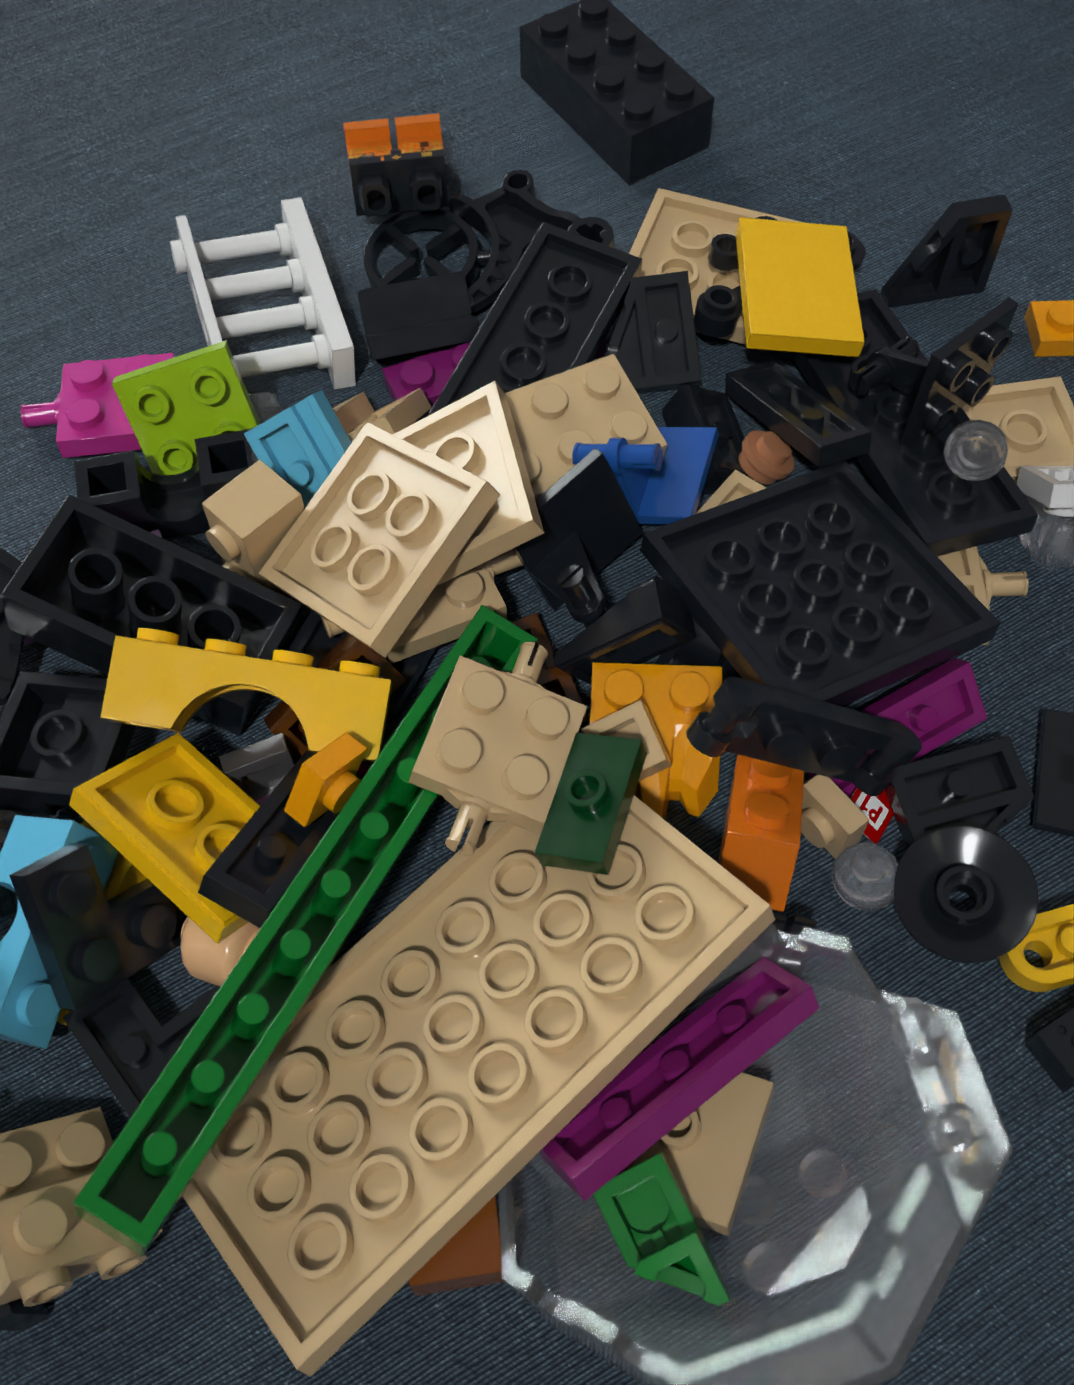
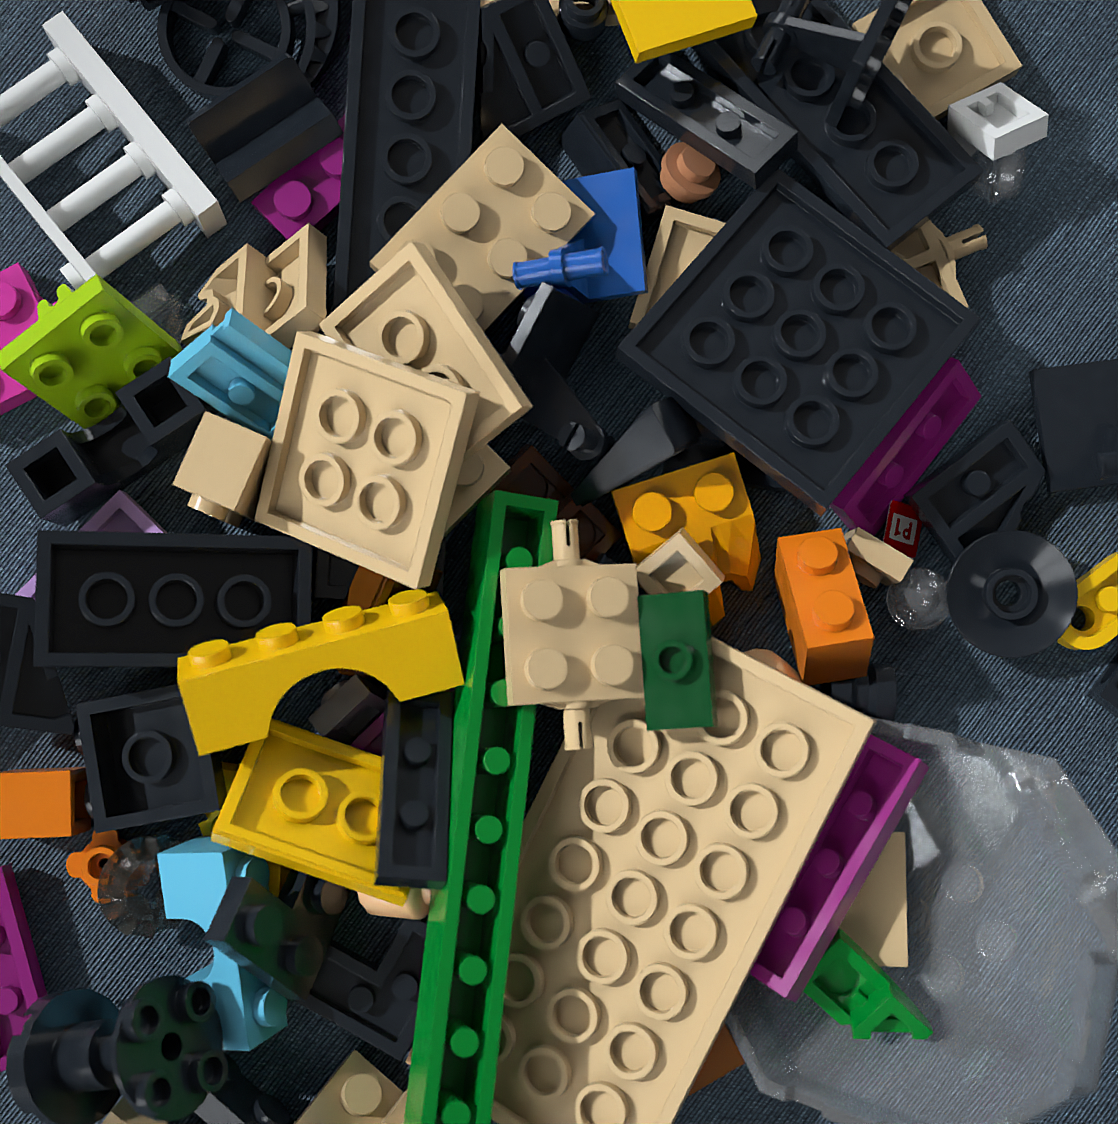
camera: 25 degrees left, 25 degrees up
(326, 780) = (435, 729): light orange plate -> none
(803, 734) = (832, 524): black plate -> none
(976, 450) = (908, 121): clear plate -> none

